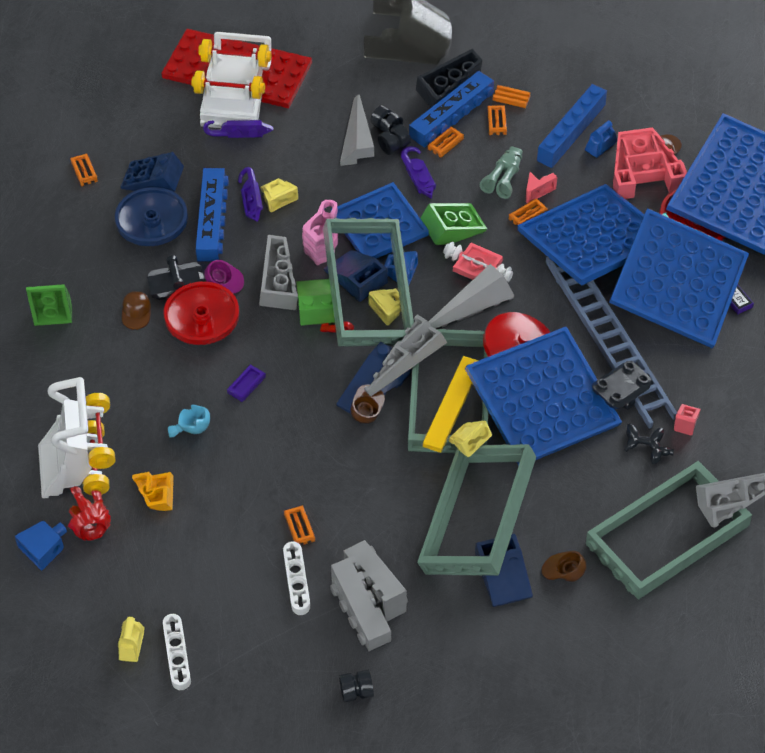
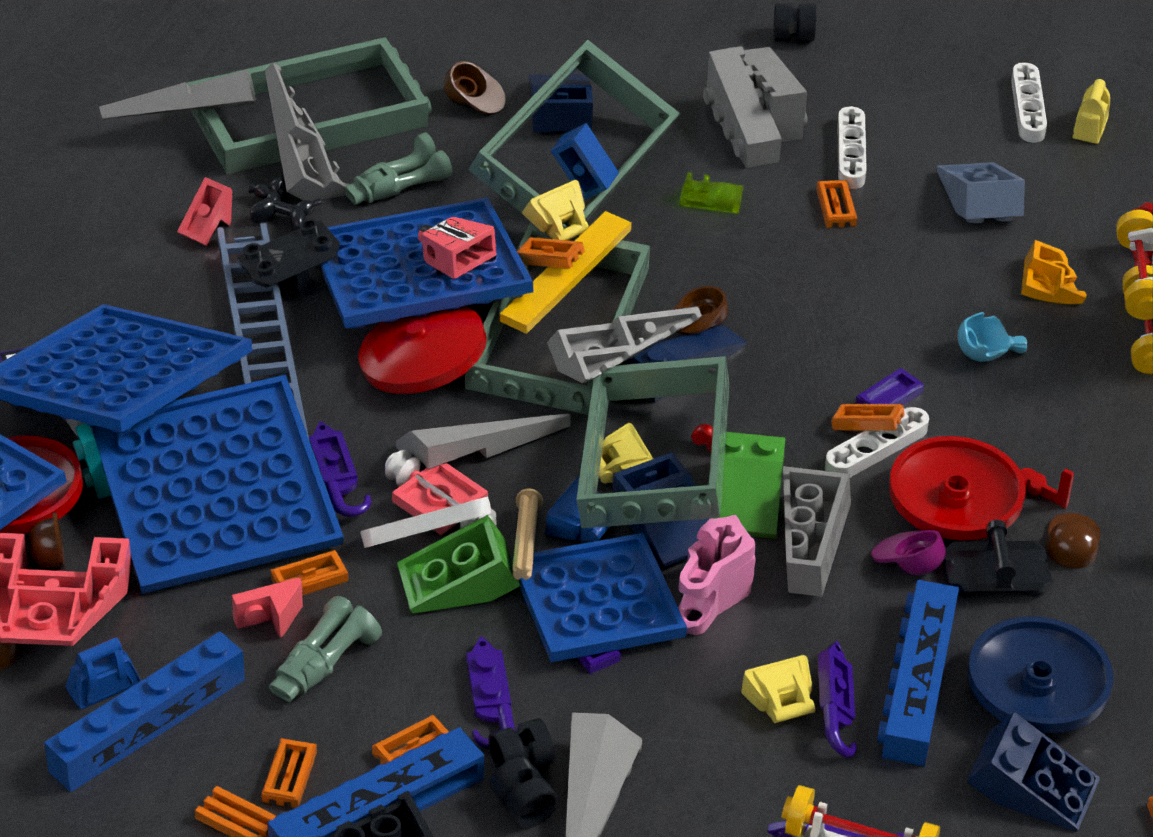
camera: 170 degrees left, 10 degrees down
(157, 339) = (1037, 485): none -> red piece
(205, 551) = (983, 191): none -> sand blue slope
(241, 355) = (868, 417): none -> orange tile
(252, 348) = (911, 428): none -> white beam
(382, 514) = (711, 196): none -> clear neon green plate
(425, 243) = (528, 503): none -> tan axle
(464, 408) = (550, 252): none -> orange tile
(464, 478) = (585, 161): none -> blue brick
(477, 233) = (426, 522): none -> white beam
(521, 385) = (457, 245): none -> coral torso
(539, 269) = (336, 469): none -> dark purple plate
(592, 474) = (383, 180): none -> sand green piece
(649, 471) = (300, 145): none -> light grey wedge
(657, 188) = (46, 544): none -> reddish brown cap

